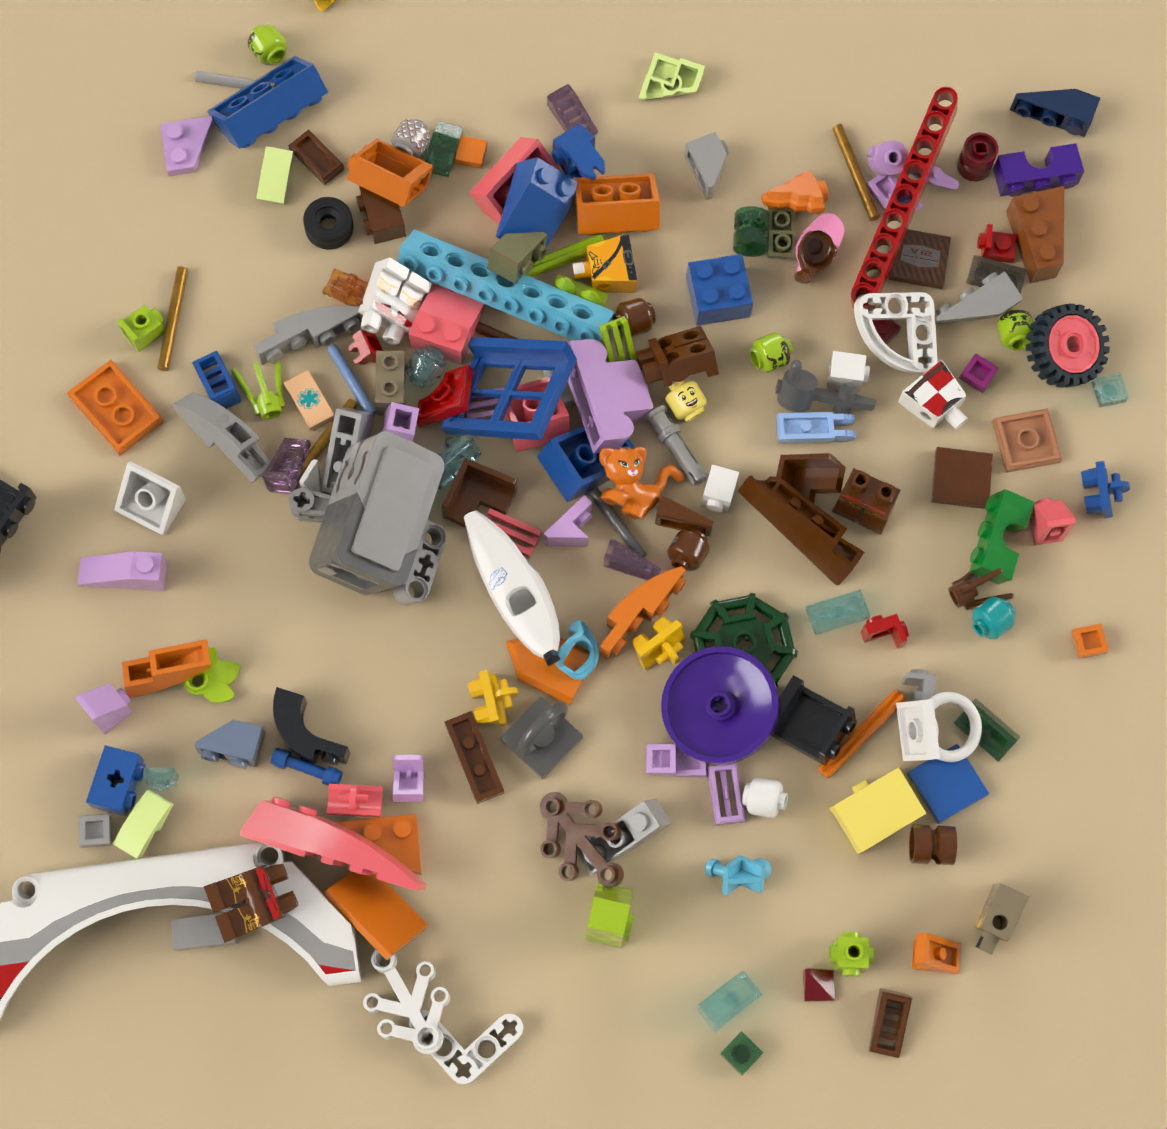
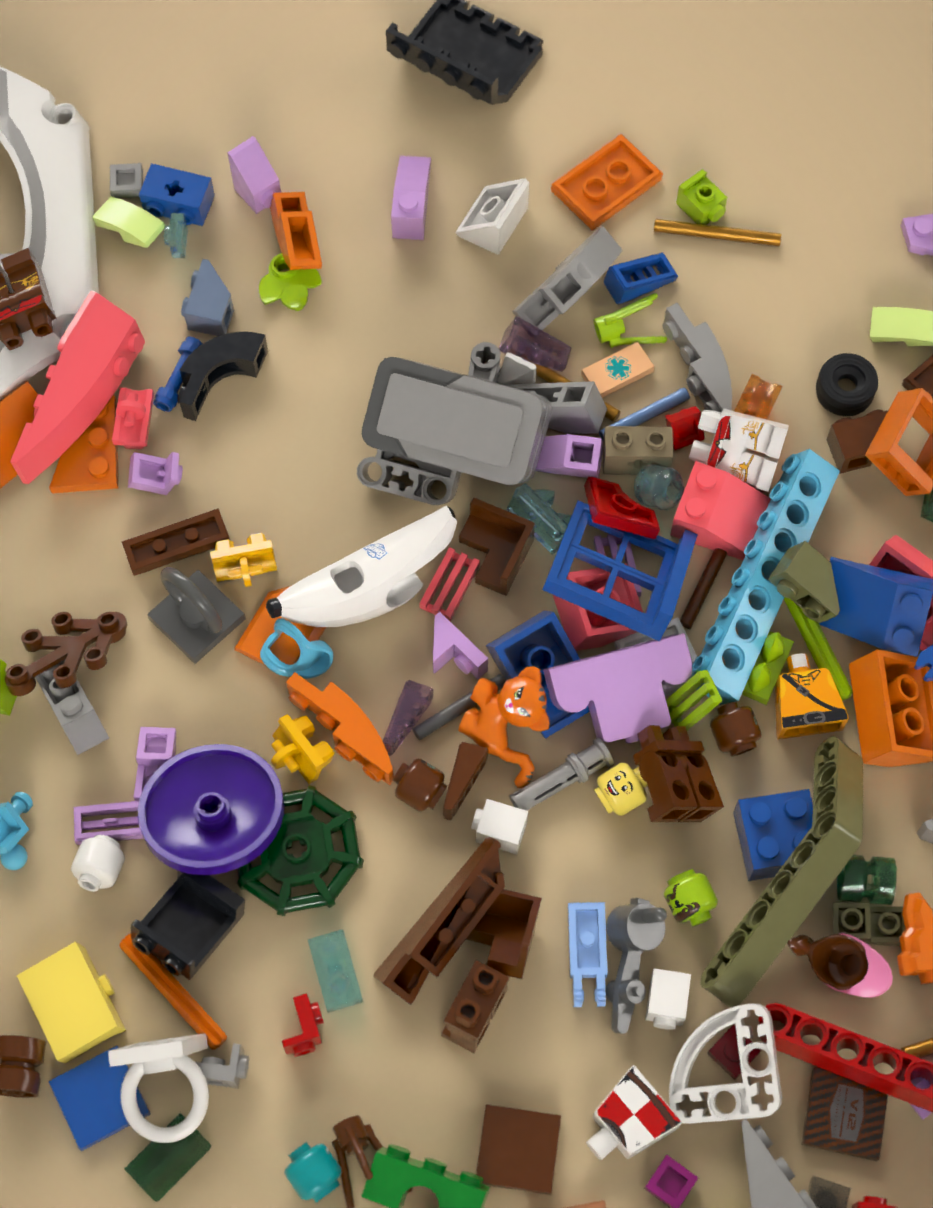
camera: 95 degrees right, 5 degrees down
(664, 245) = (801, 879): none -> olive beam

